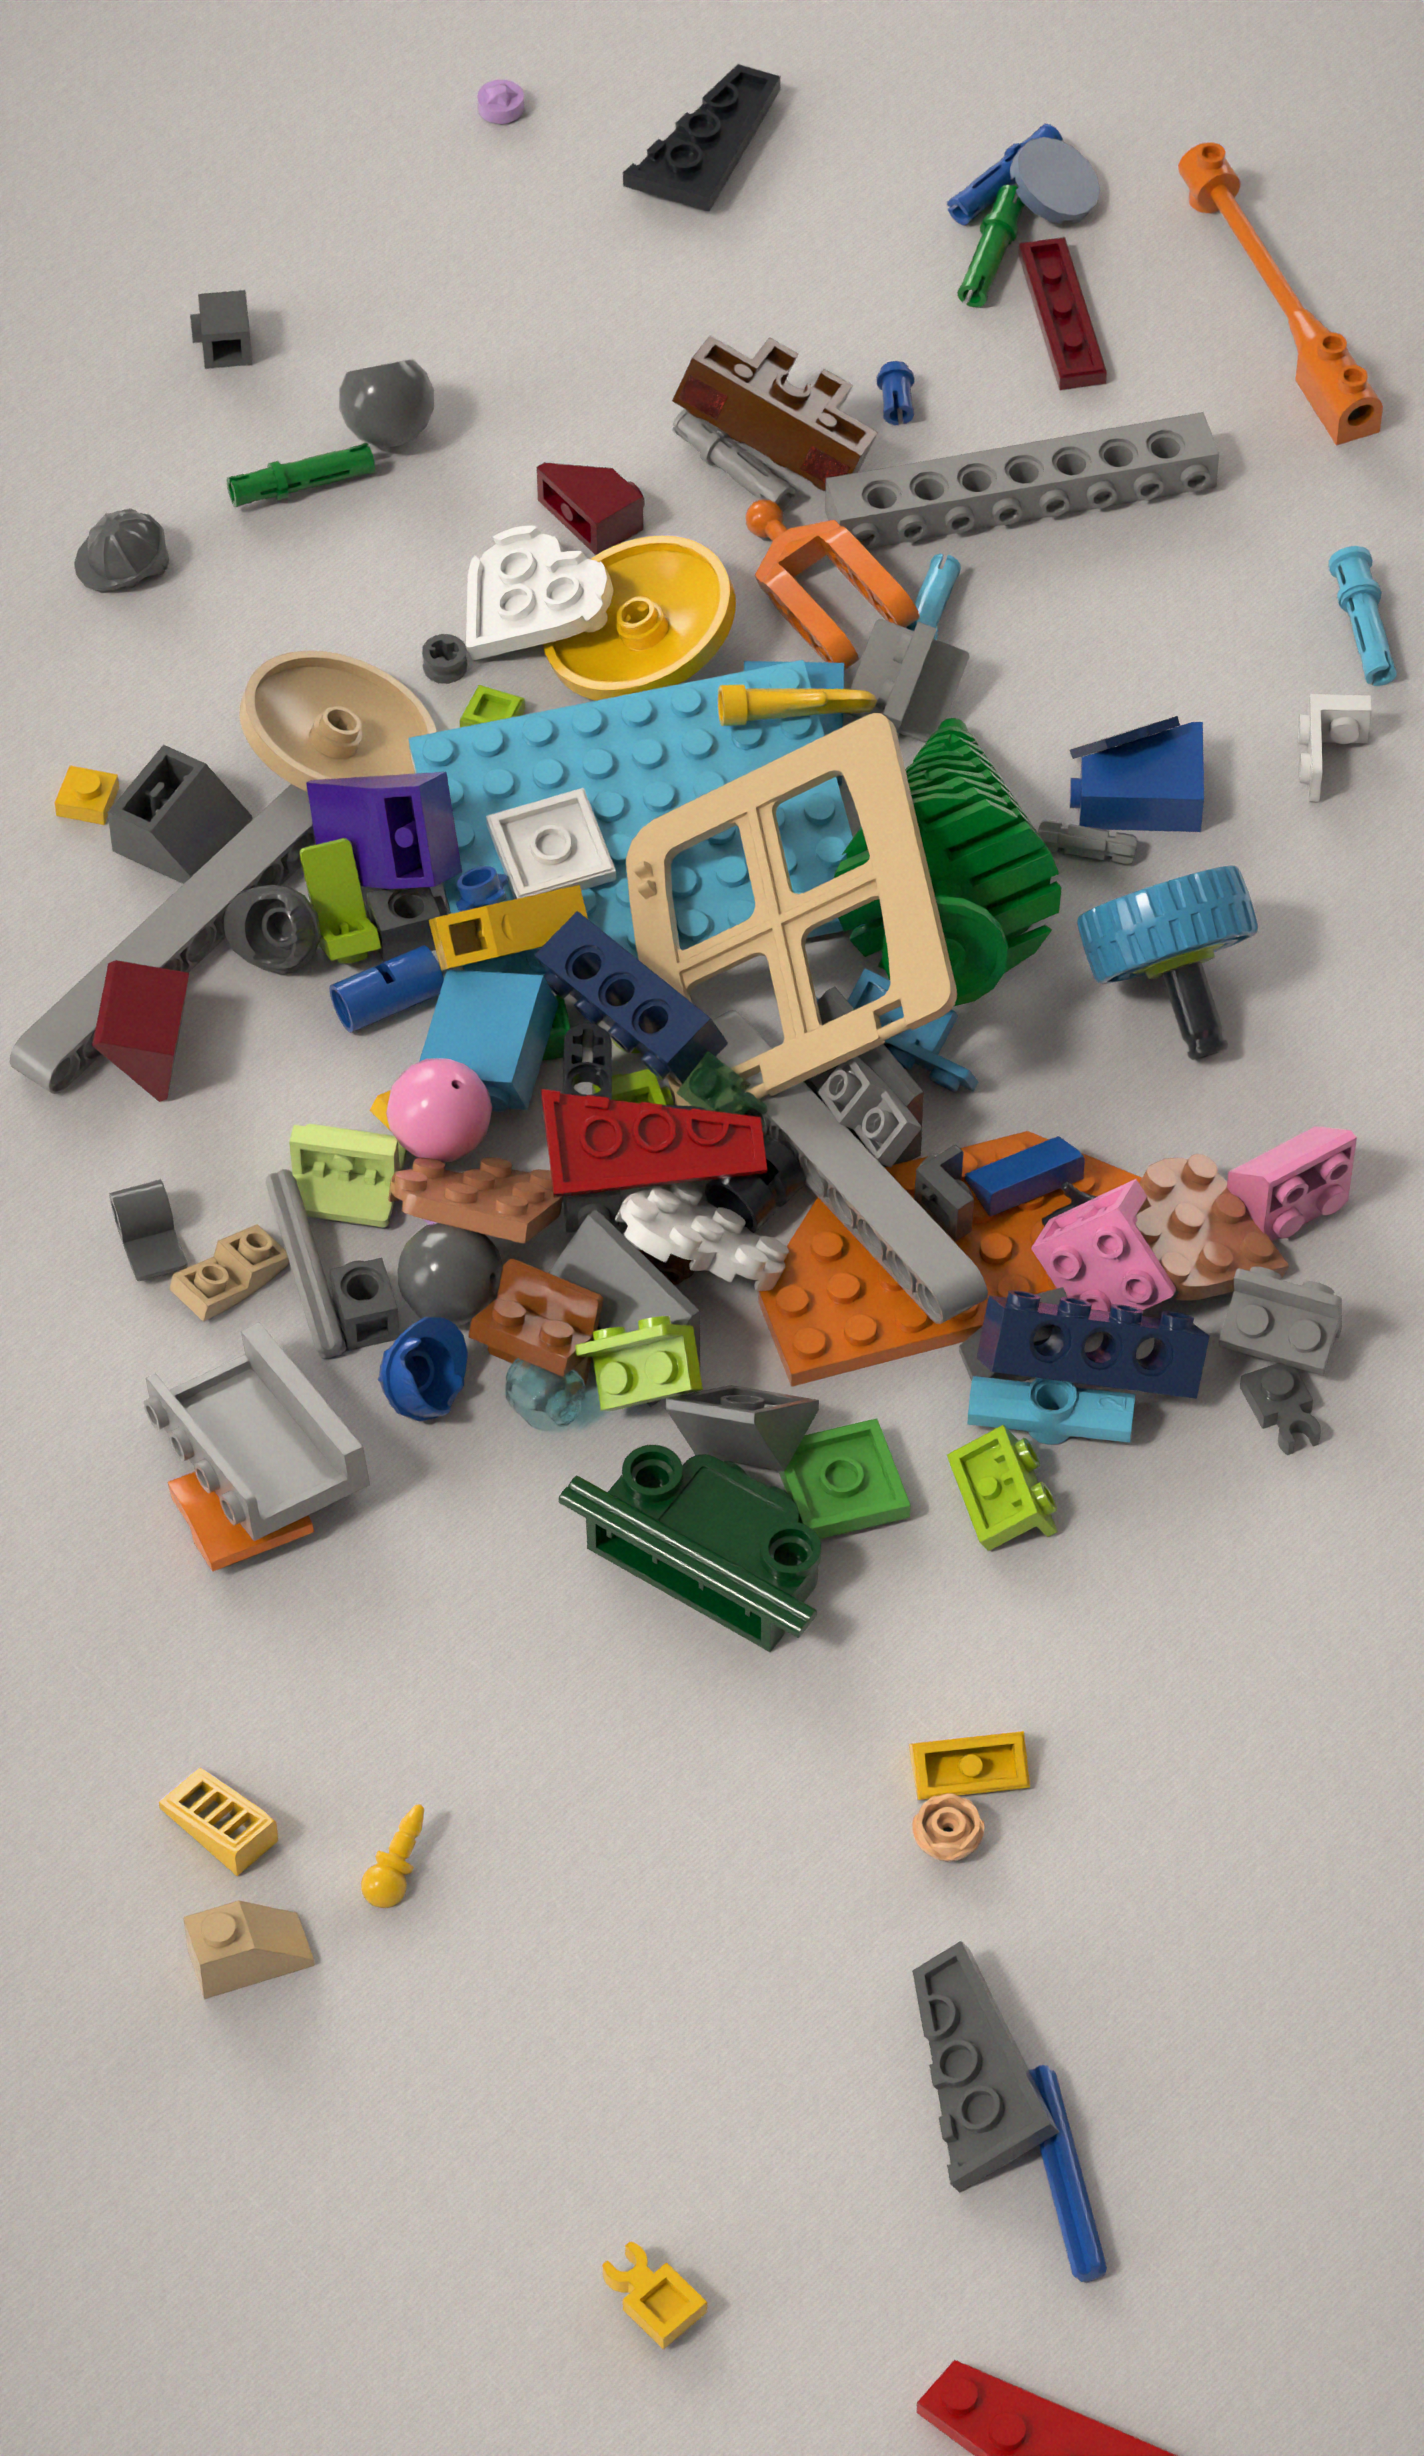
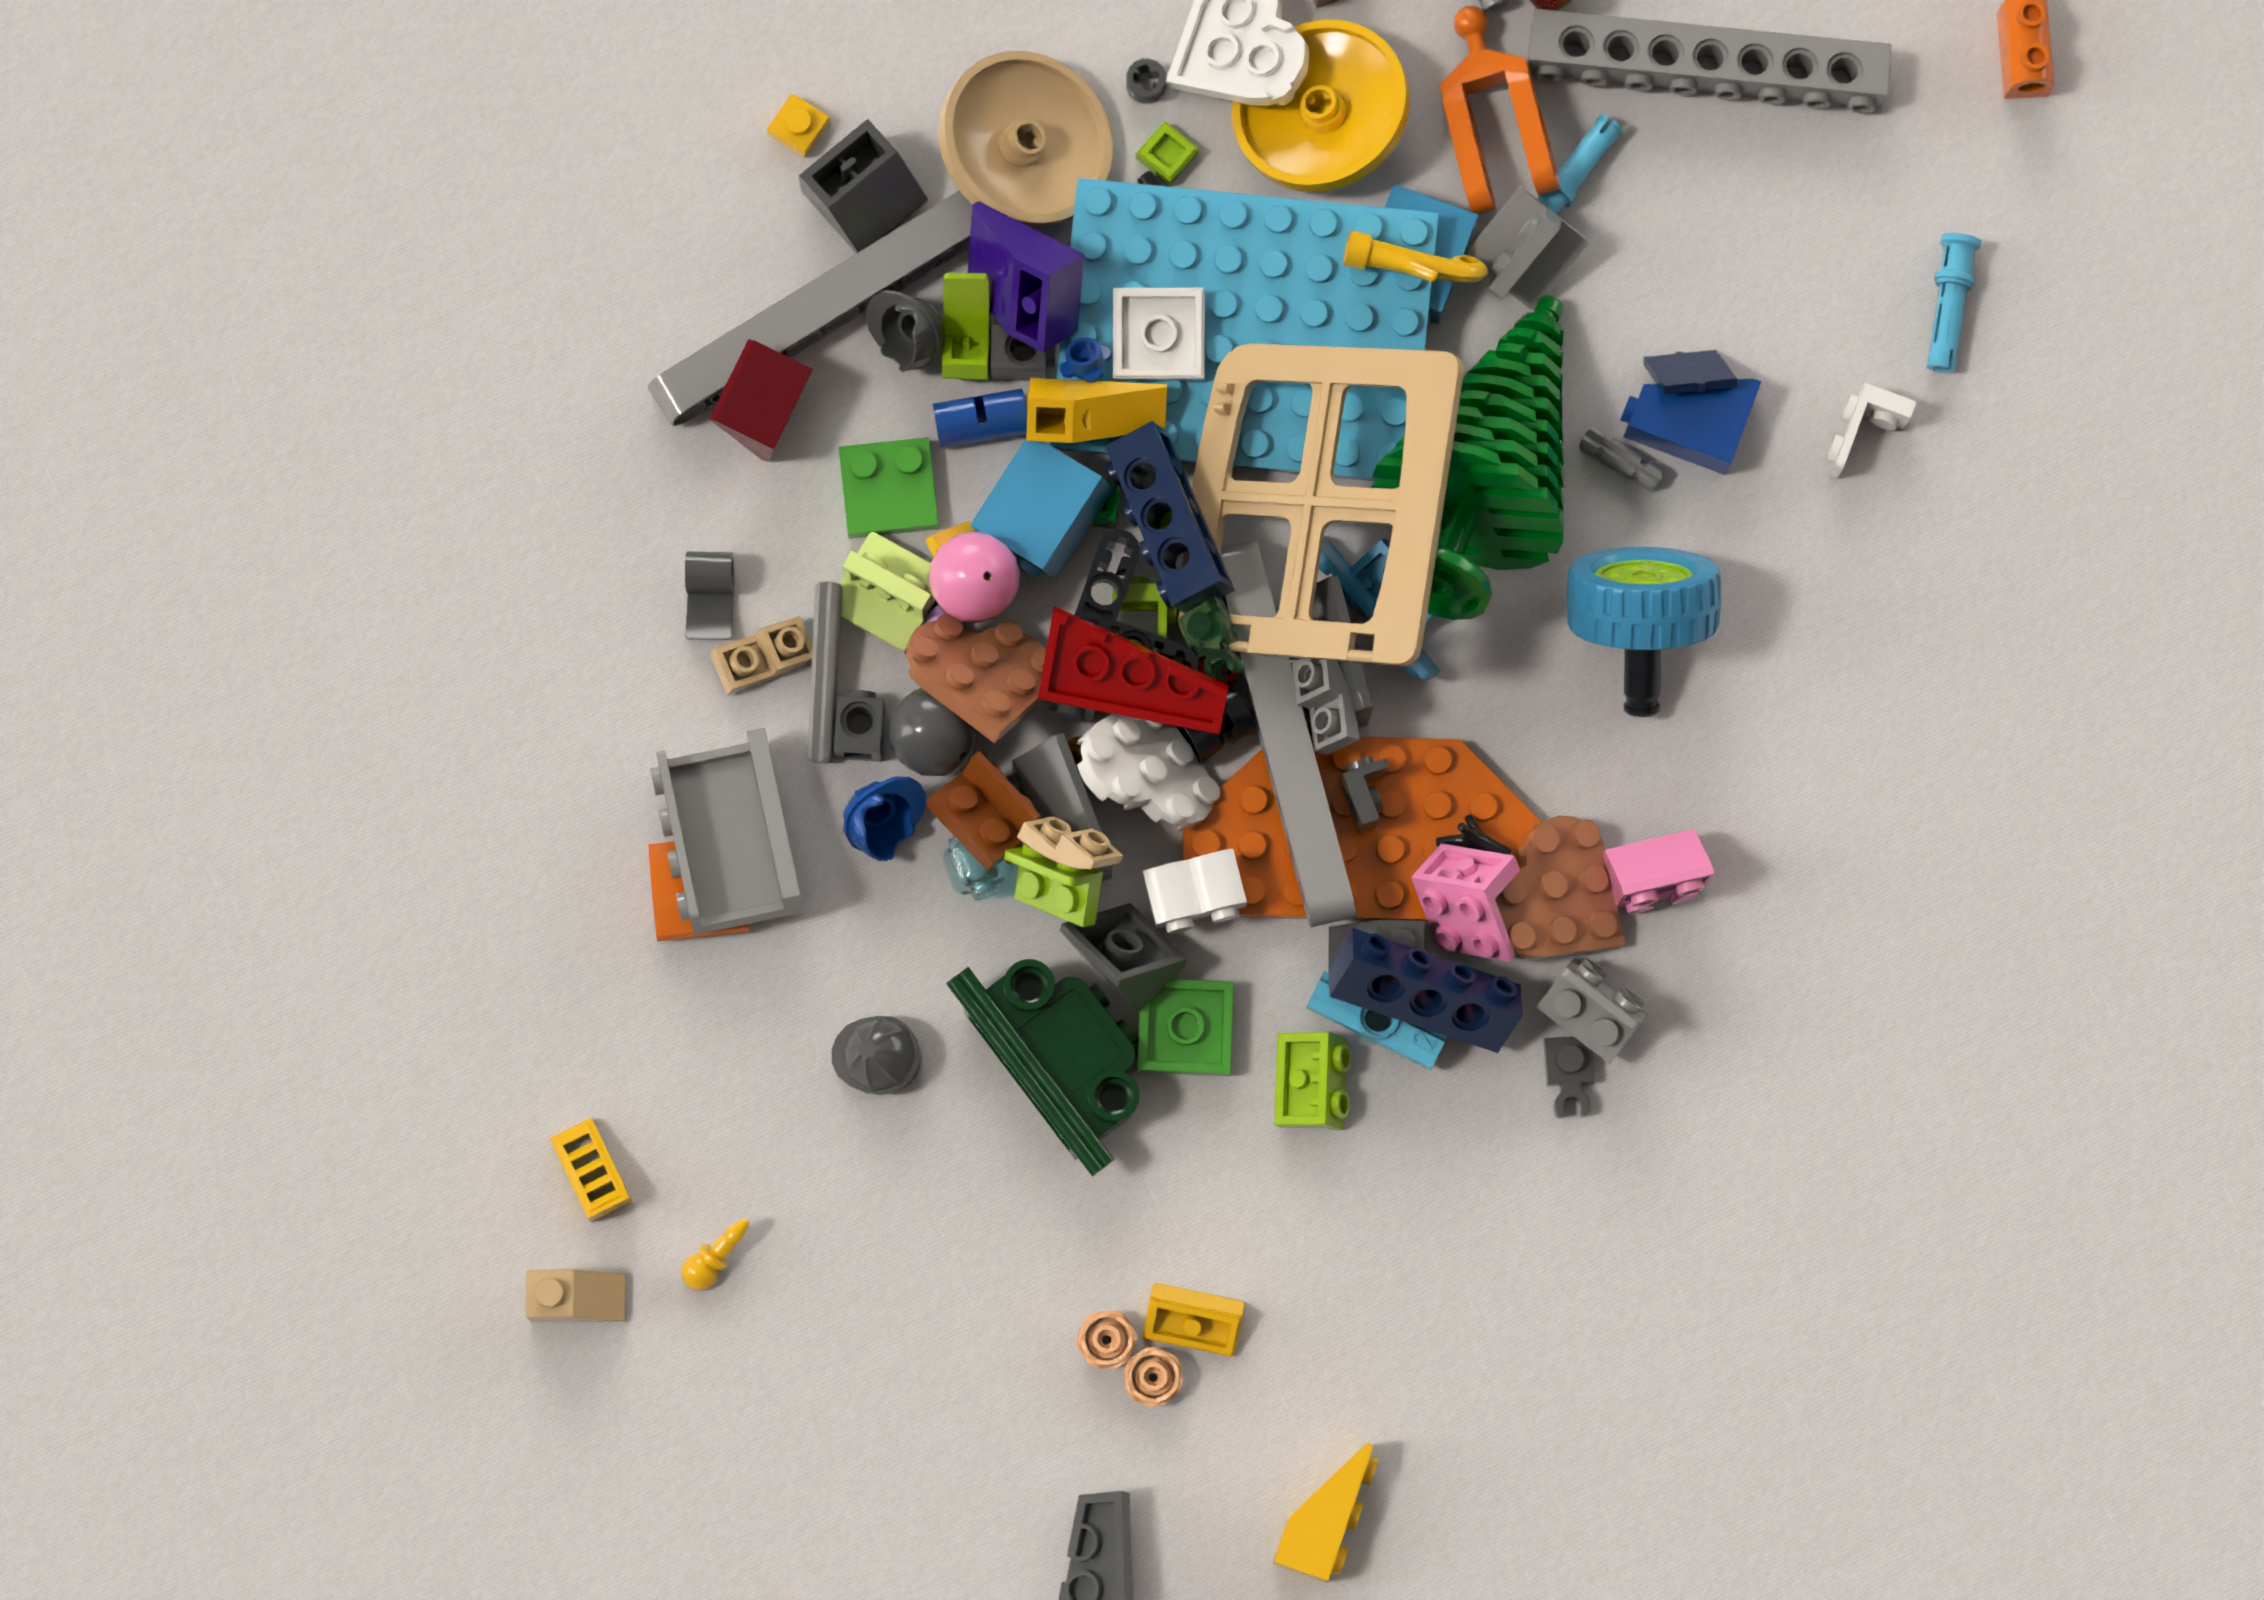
camera: 15 degrees right, 25 degrees up
(309, 1082) = (888, 487): none -> bright green plate
(505, 1607) = (876, 1055): none -> dark grey piece
(667, 1298) = (1075, 849): none -> tan slope
(799, 1332) = (1195, 890): none -> white brick
(881, 1791) = (1106, 1324): none -> light nougat plate
(1026, 1175) = (1438, 790): blue slope -> none
(1198, 1912) = (1318, 1526): none -> yellow slope

